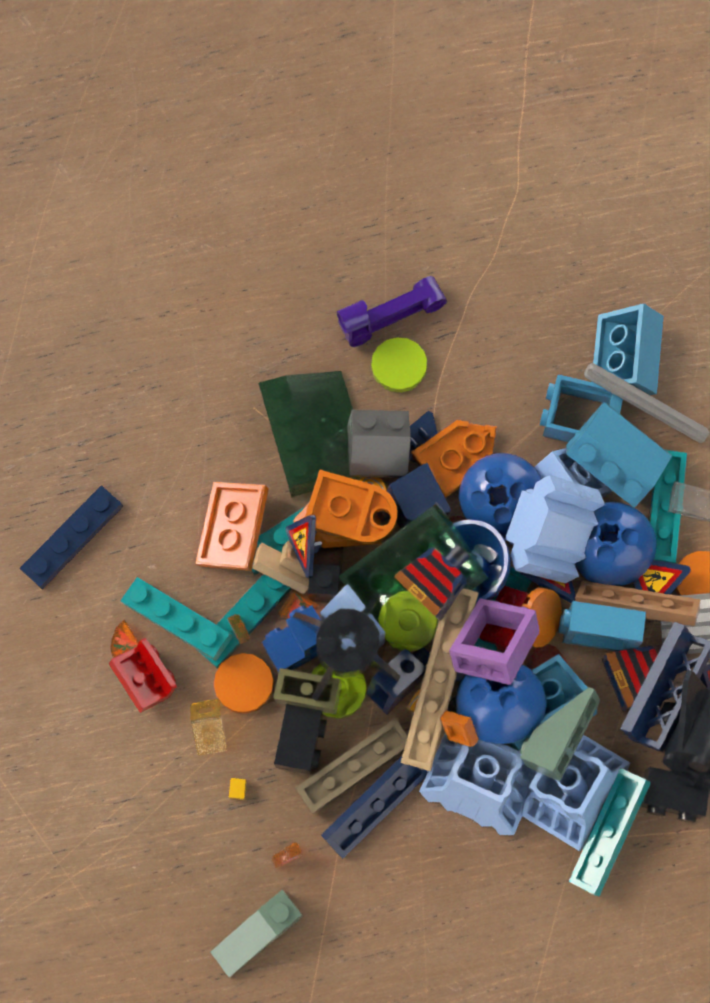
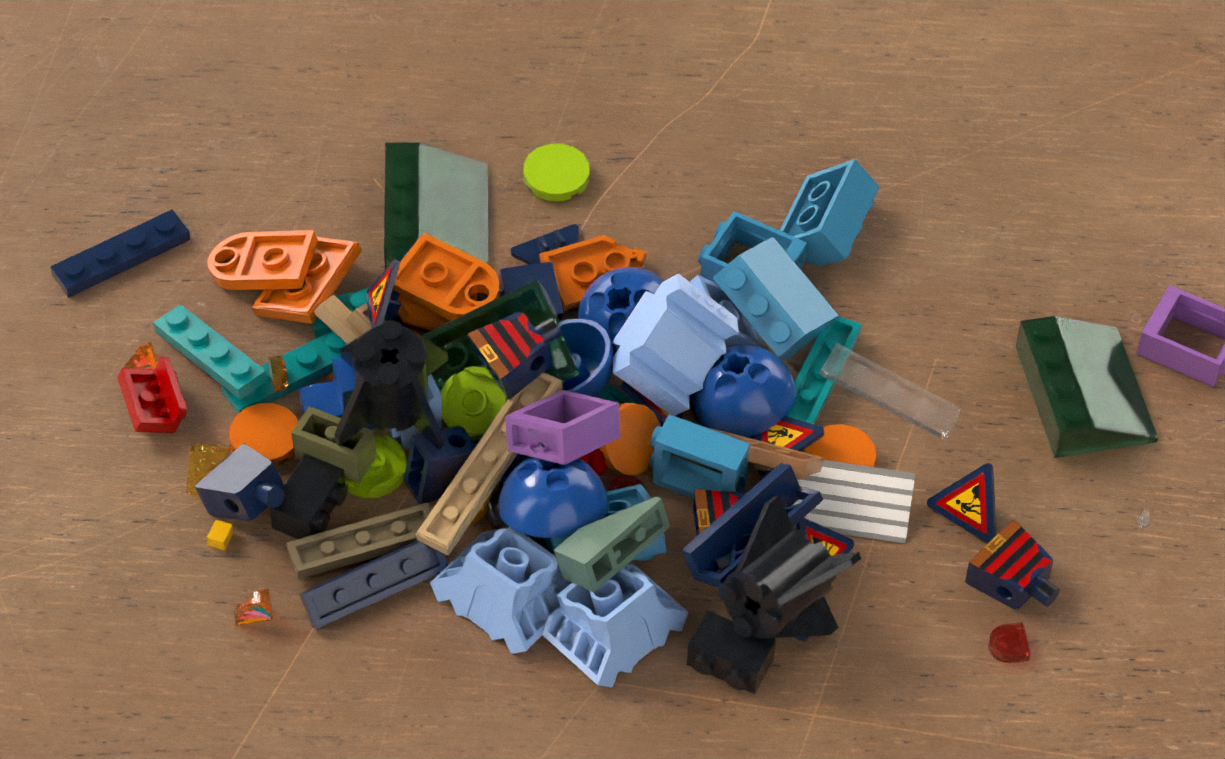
camera: 10 degrees right, 20 degrees down
(193, 518) = (263, 260): none -> orange tile
(245, 746) = (241, 486): none -> dark blue torso
(256, 933) = (193, 673): slope -> none
(360, 324) = (527, 122): dark purple piece -> none
(378, 443) = (503, 228): dark grey slope -> none
(459, 728) = (494, 511): orange tile -> none
(609, 832) = (638, 668): teal plate -> none
(646, 402) = (828, 260): light grey axle -> none

